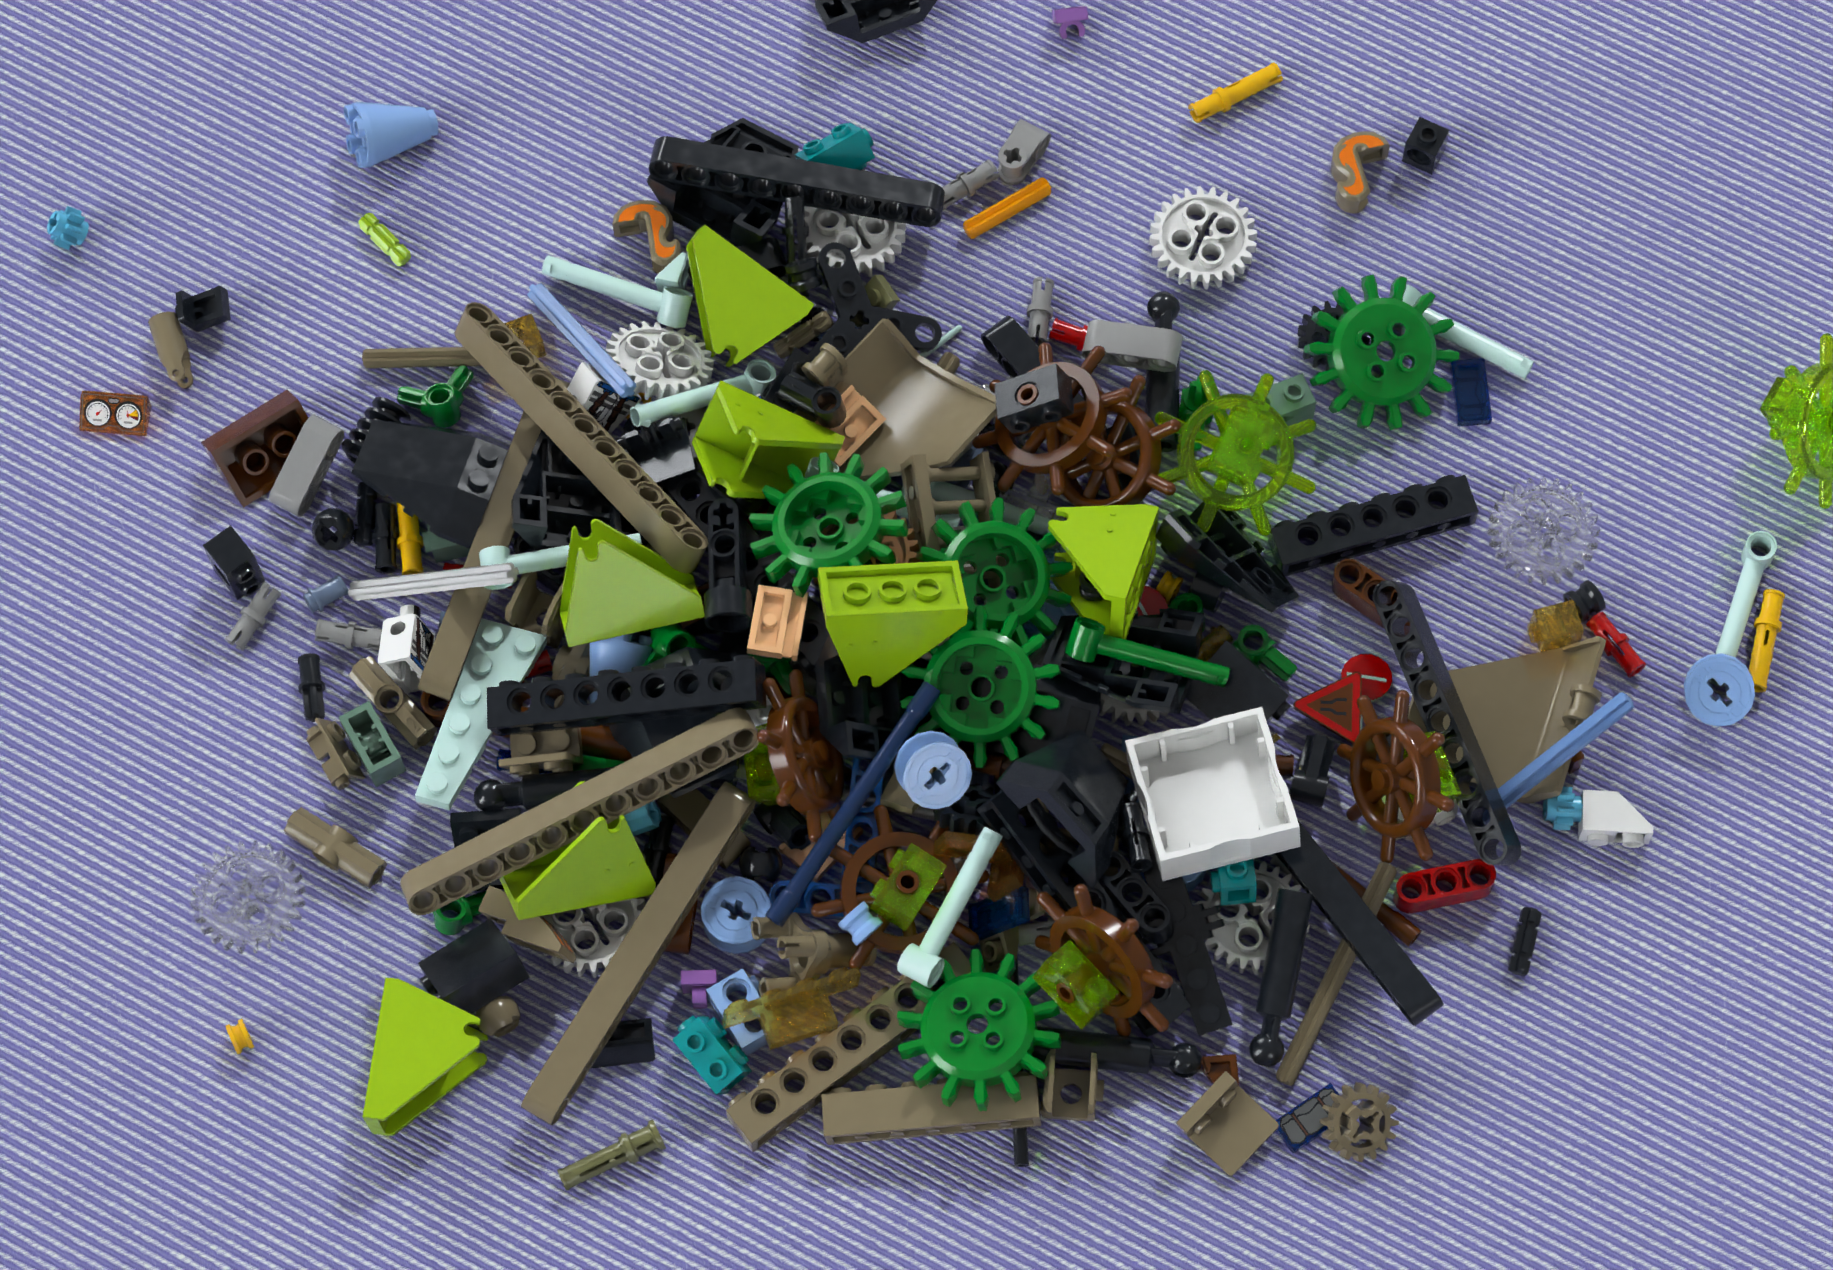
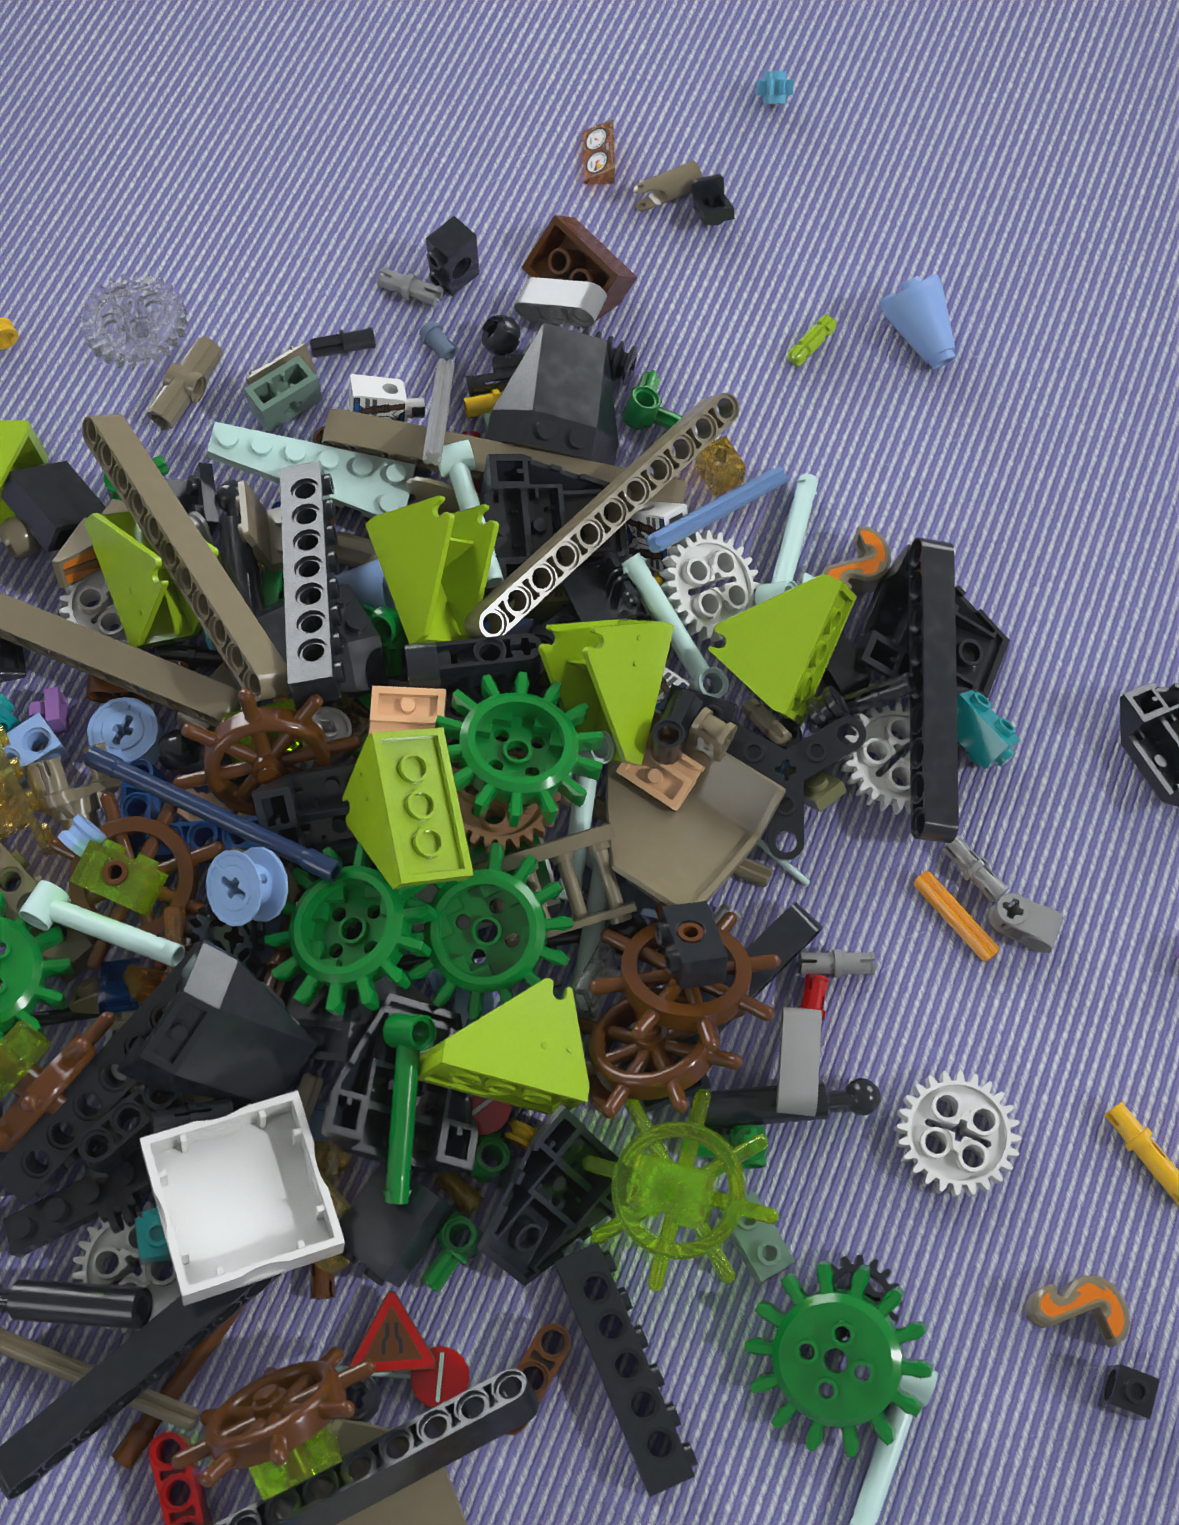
camera: 80 degrees right, 0 degrees up
(348, 634) = (398, 364): light grey pin -> none
(405, 715) = (323, 400): dark tan piece -> none
(417, 357) = (689, 371): dark tan axle -> none
(1311, 777) = (305, 1320): black piece -> none
(1471, 392) = (815, 1478): clear blue tile -> none

